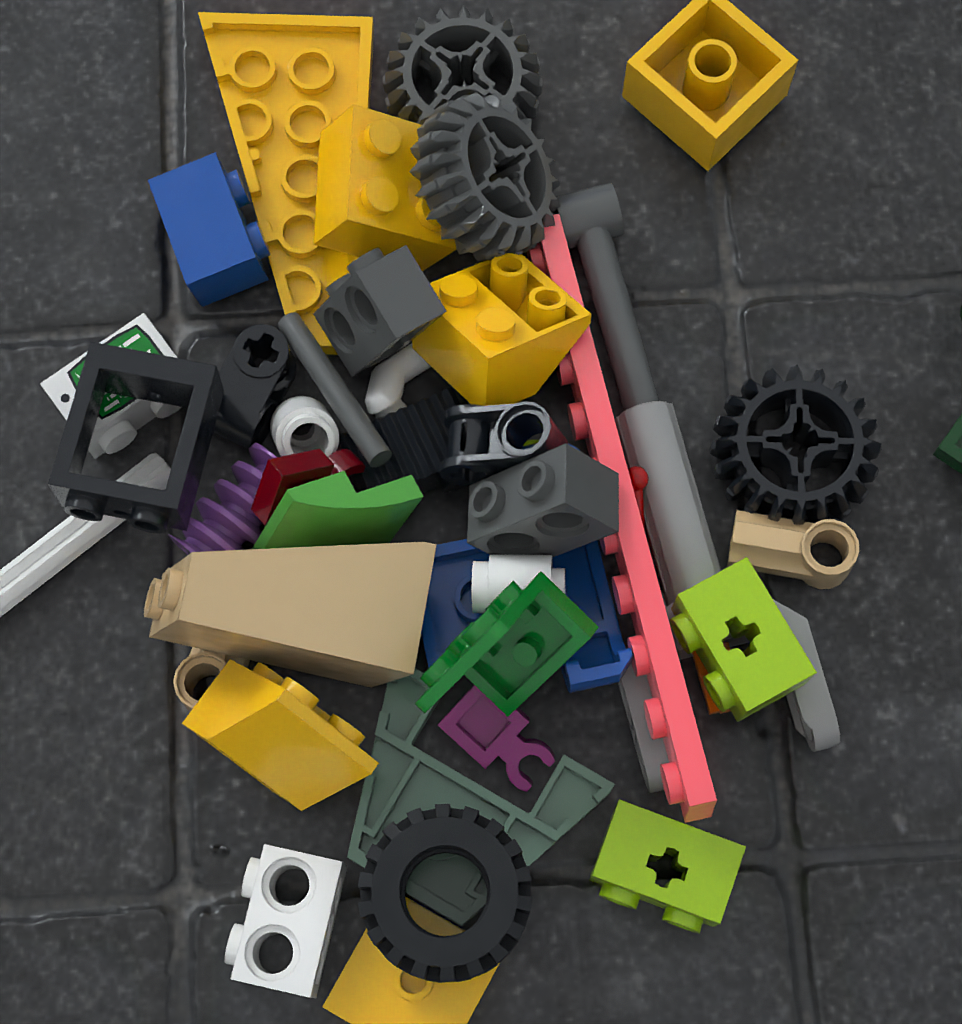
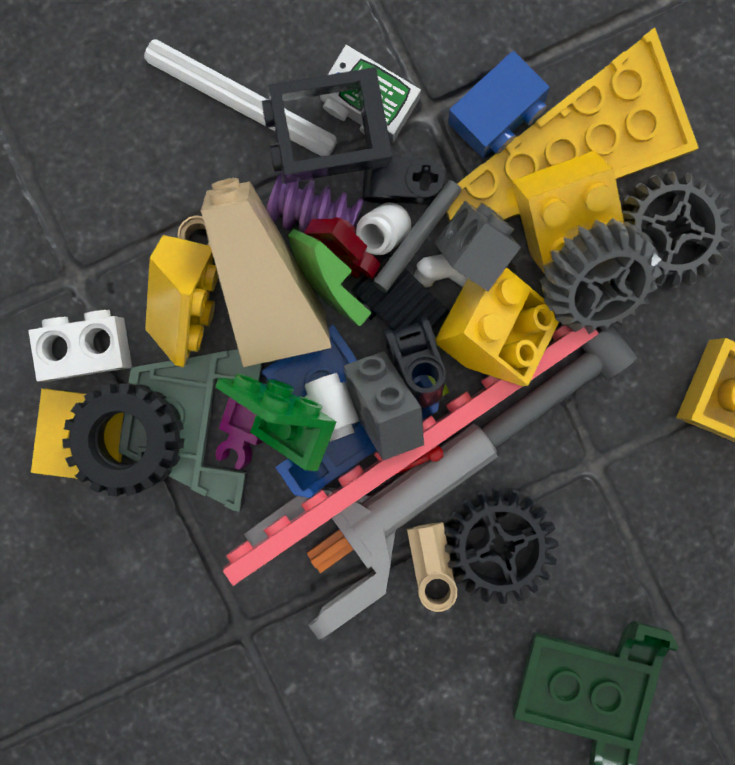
camera: 65 degrees right, 15 degrees up
(704, 859) = (187, 581): lime brick -> none
(740, 605) = (343, 585): lime brick -> none

